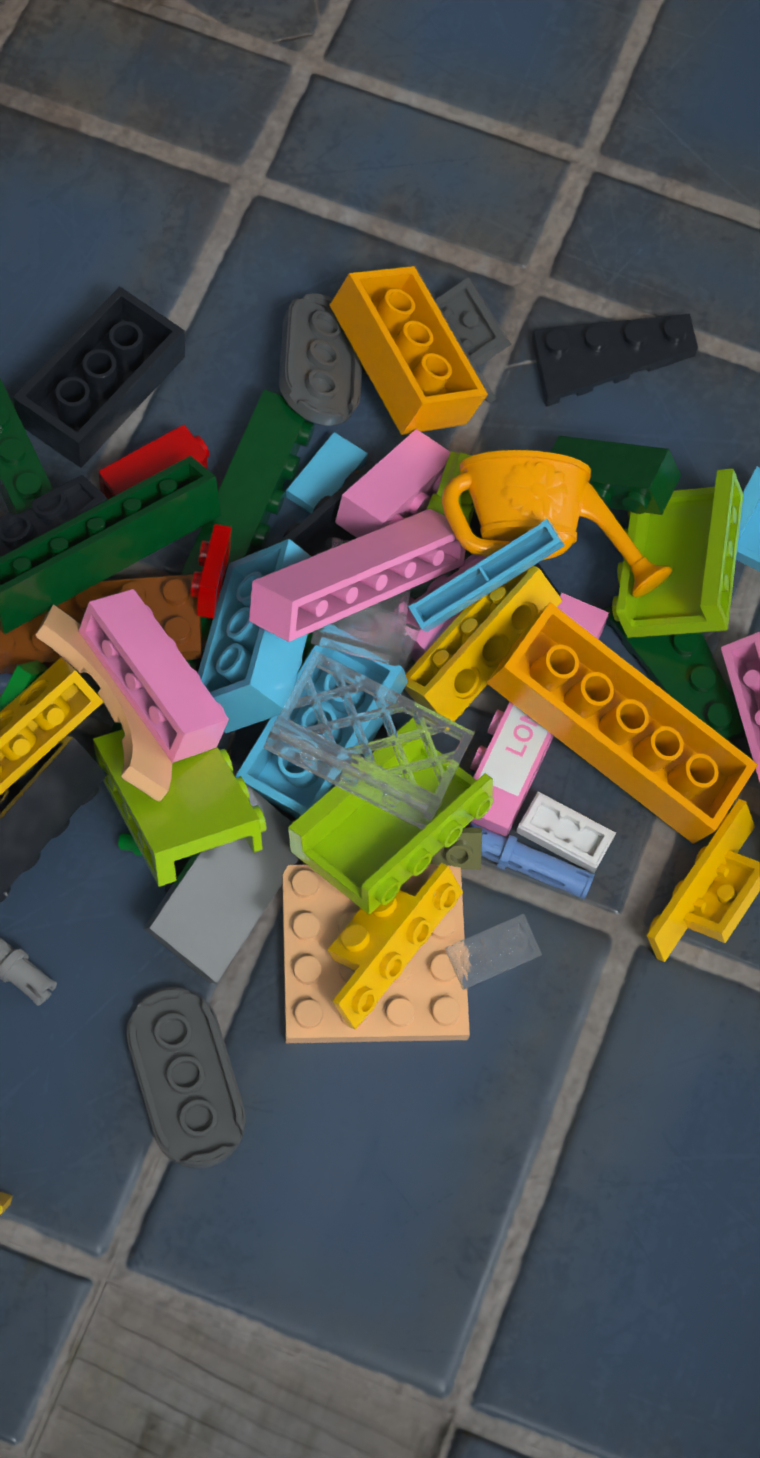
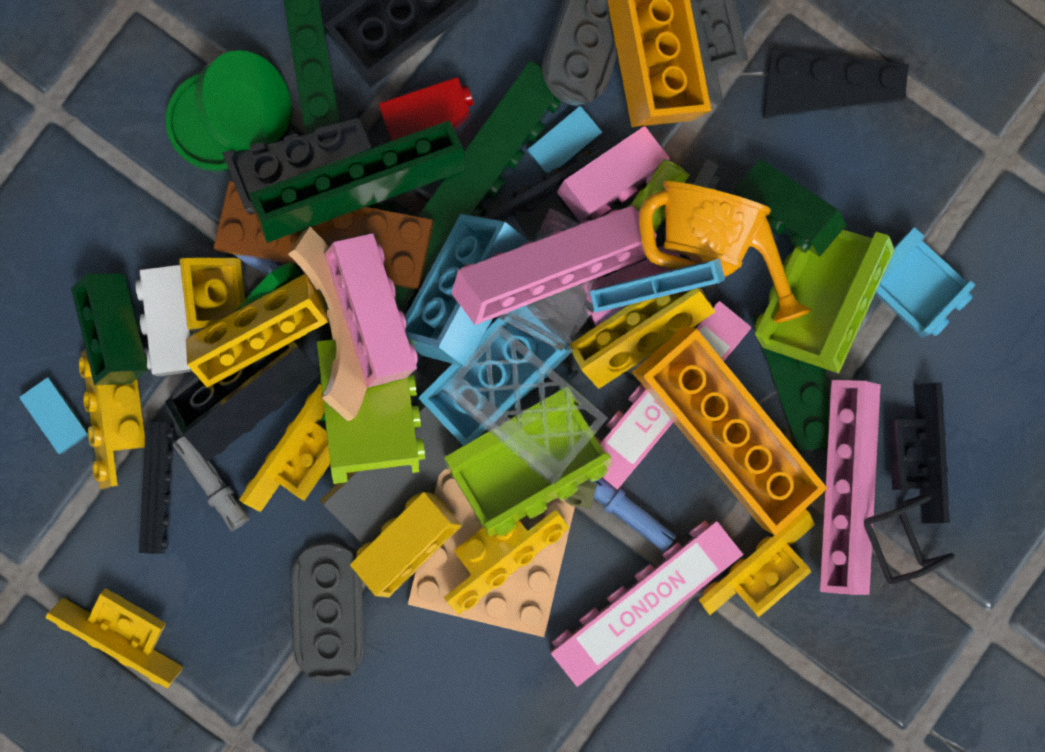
camera: 20 degrees right, 20 degrees up
(99, 894) = (296, 460): none -> yellow bracket
(208, 583) = (436, 235): red plate -> none
(265, 958) = (405, 544): none -> yellow brick
(493, 951) = (579, 577): clear slope -> none
(565, 832) = (665, 496): white plate -> none
(580, 962) = (645, 602): none -> brick

